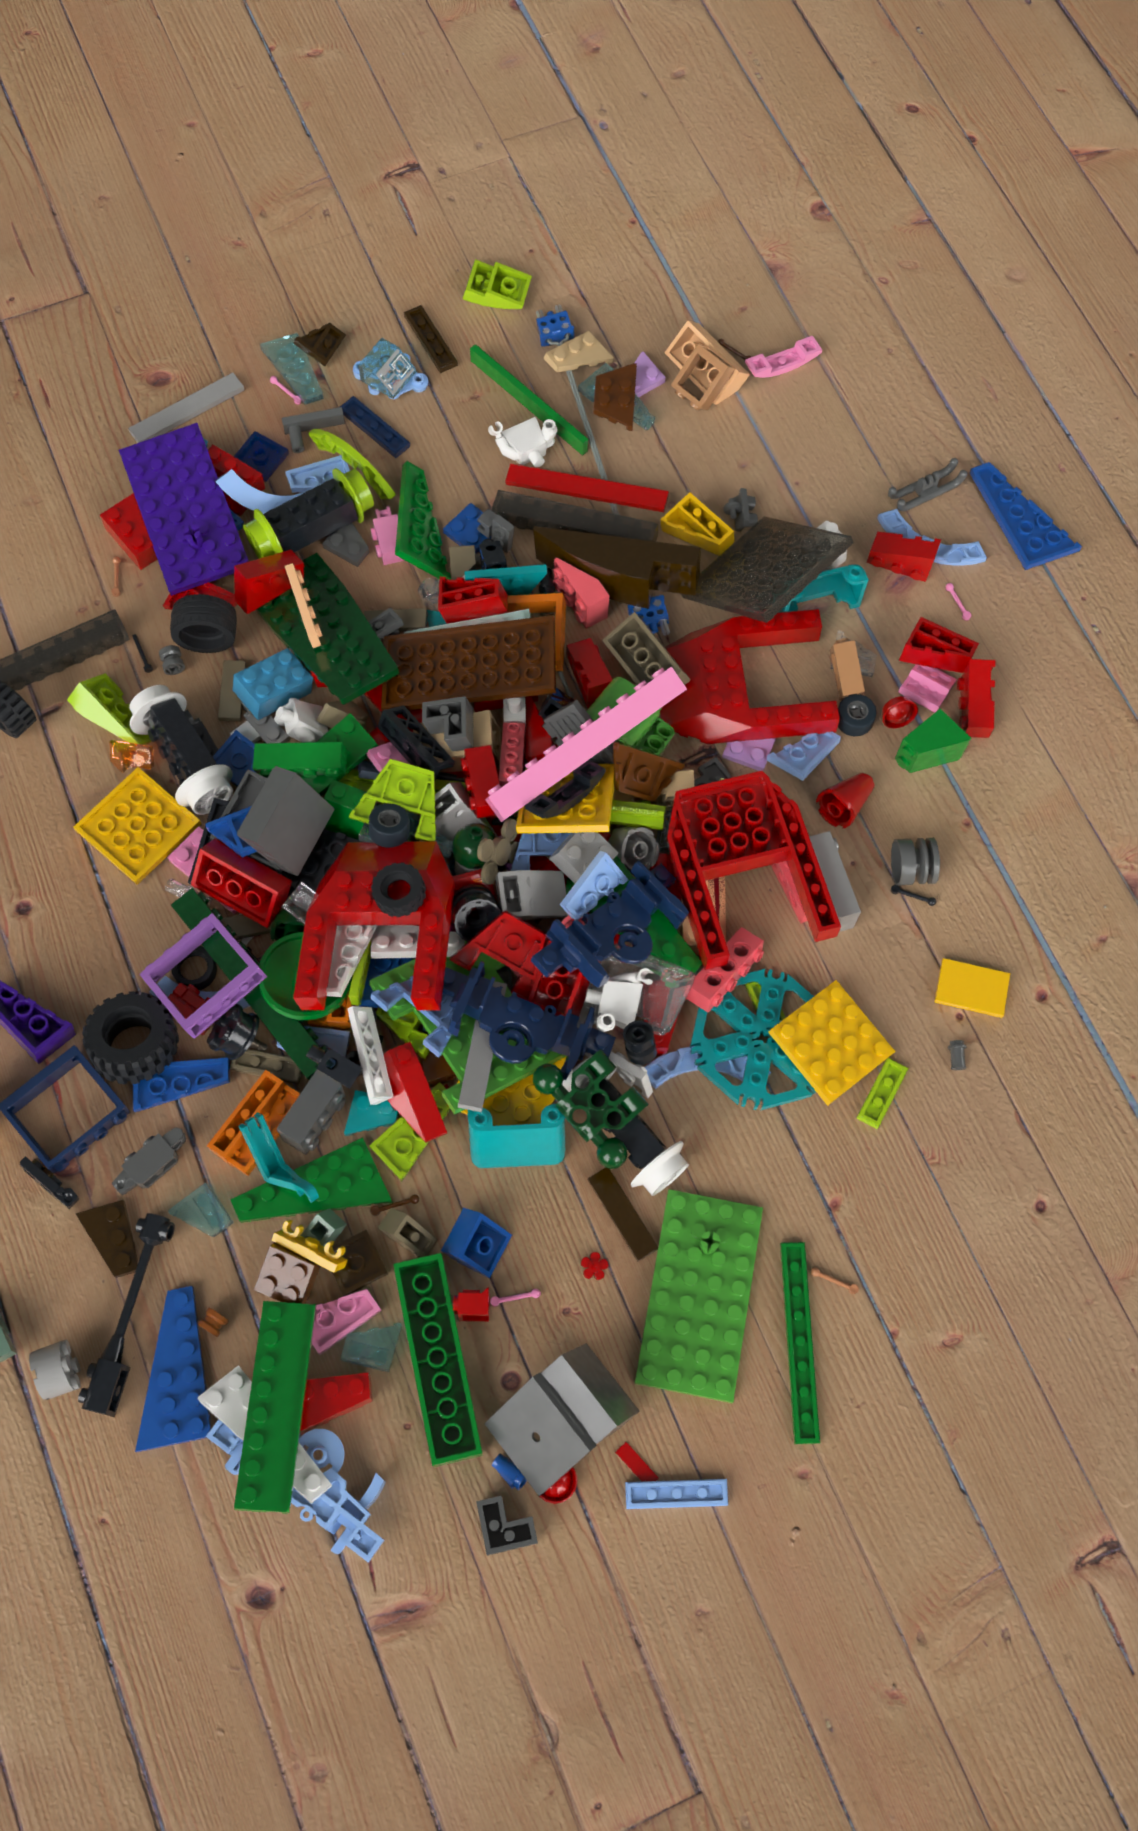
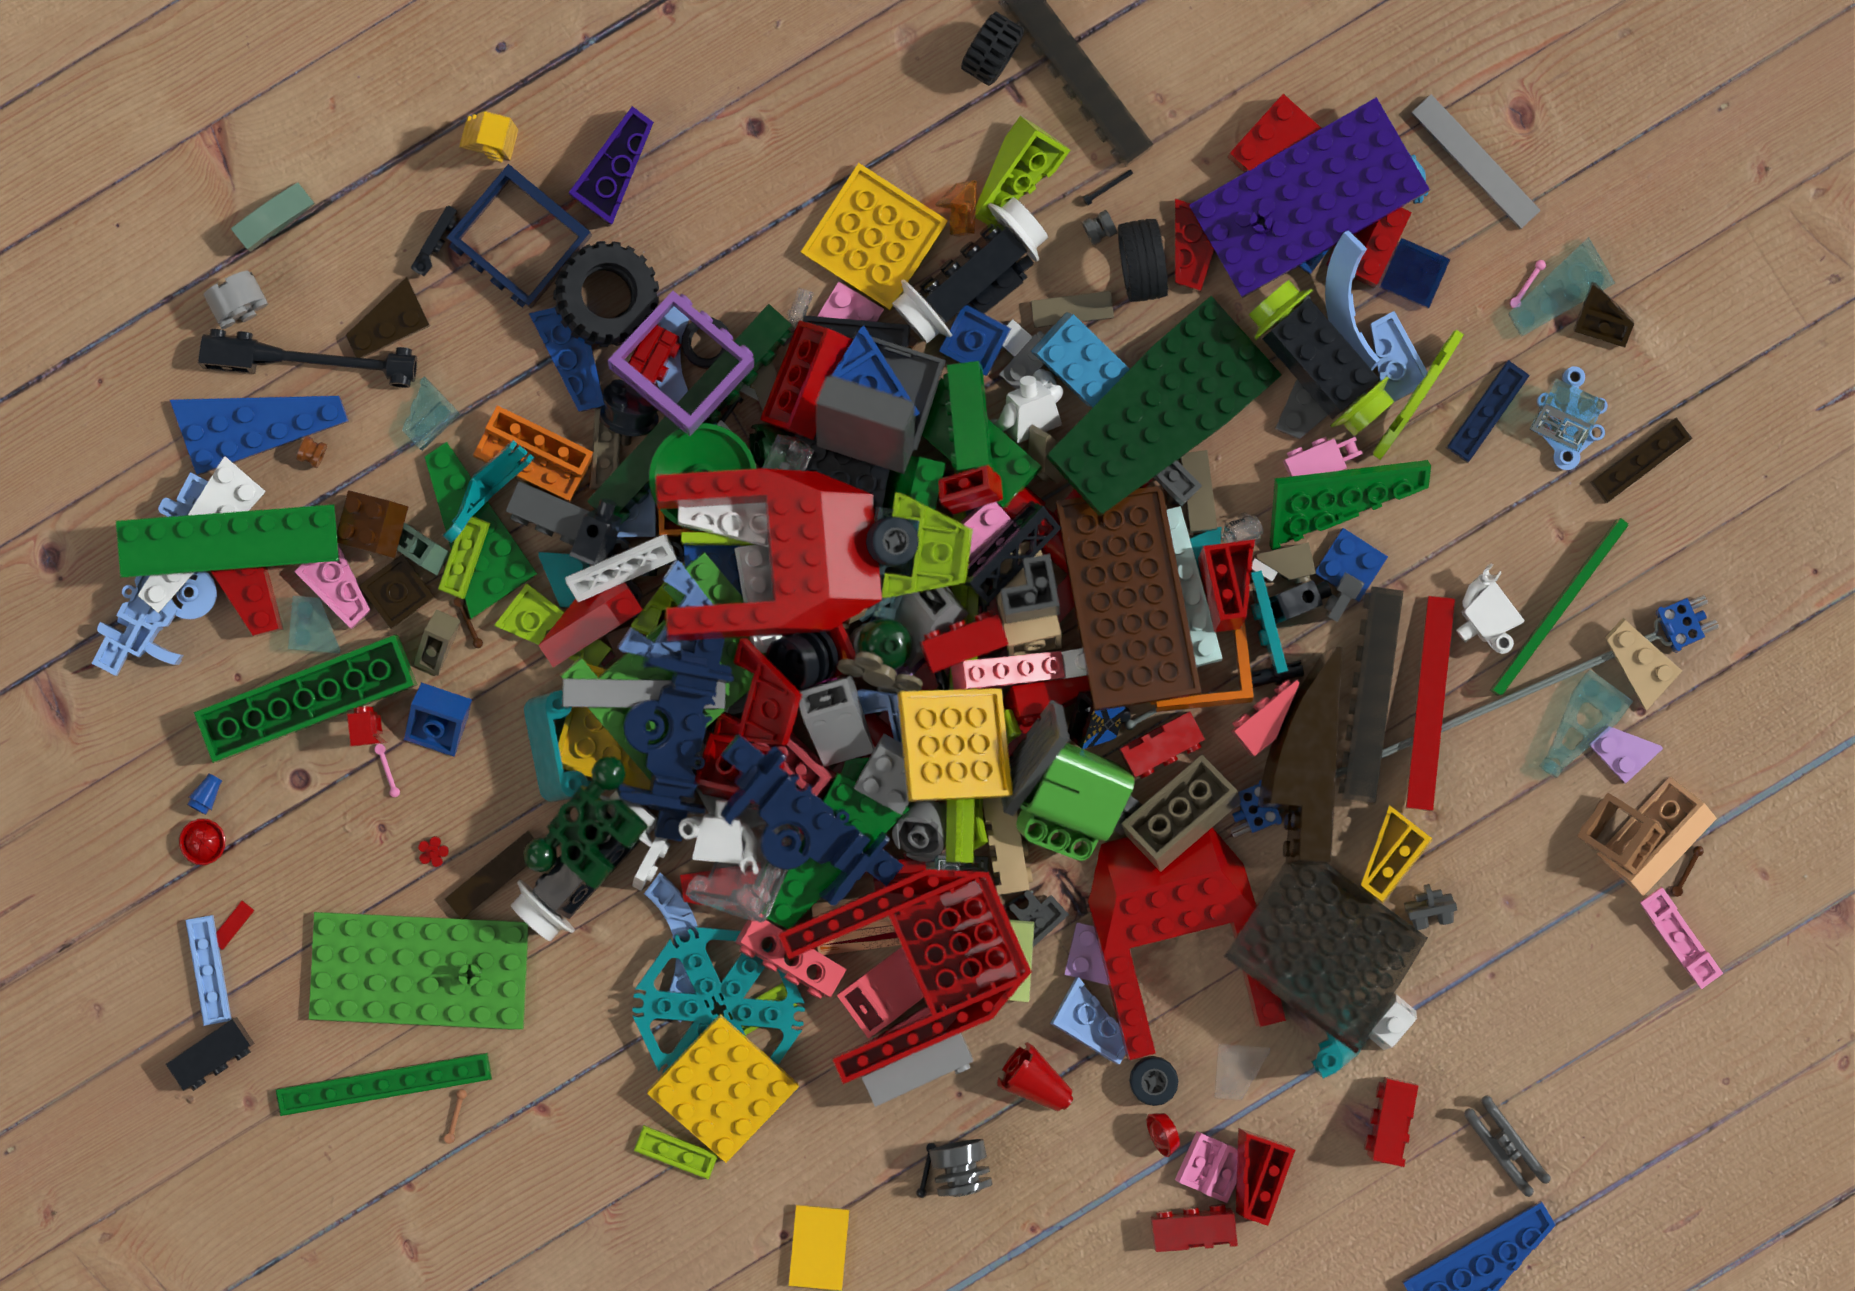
camera: 80 degrees right, 20 degrees up
(115, 591) = (1189, 133): nougat hinge -> none
(150, 1162) = (473, 346): dark grey hinge -> none
(263, 579) = (1218, 325): red wedge -> none
(304, 422) = (1462, 309): dark grey piece -> none
(307, 612) = (1181, 379): light nougat wing -> none
(310, 1247) = (396, 542): yellow plate -> none
(338, 1197) = (464, 558): none -> lime tile
(358, 760) = (970, 489): none -> red brick
(390, 875) = (794, 550): black tyre -> none
(497, 286) = (1738, 536): lime slope -> none
(503, 1535) = (139, 796): dark grey brick -> none
(570, 794) = (952, 746): black slope -> none
(570, 1408) = (266, 848): container -> none
(585, 744) = (1015, 759): bright pink brick -> none
(595, 882) = (855, 793): light blue wing -> none
(616, 395) = (1577, 722): reddish brown wing -> none
(639, 1042) = (675, 869): black wheel -> none
(642, 772) = (1006, 829): reddish brown wing -> none
(757, 1501) = (210, 1055): none -> black brick
(765, 904) = (882, 993): none -> coral slope
(846, 668) = (1202, 1063): medium nougat window -> none
(932, 744) = (1123, 1176): green slope -> none
(947, 554) = (1422, 1137): light blue tile -> none
(957, 1055) = (732, 1235): dark grey pin -> none
(966, 614) = (1324, 1210): bright pink hinge -> none

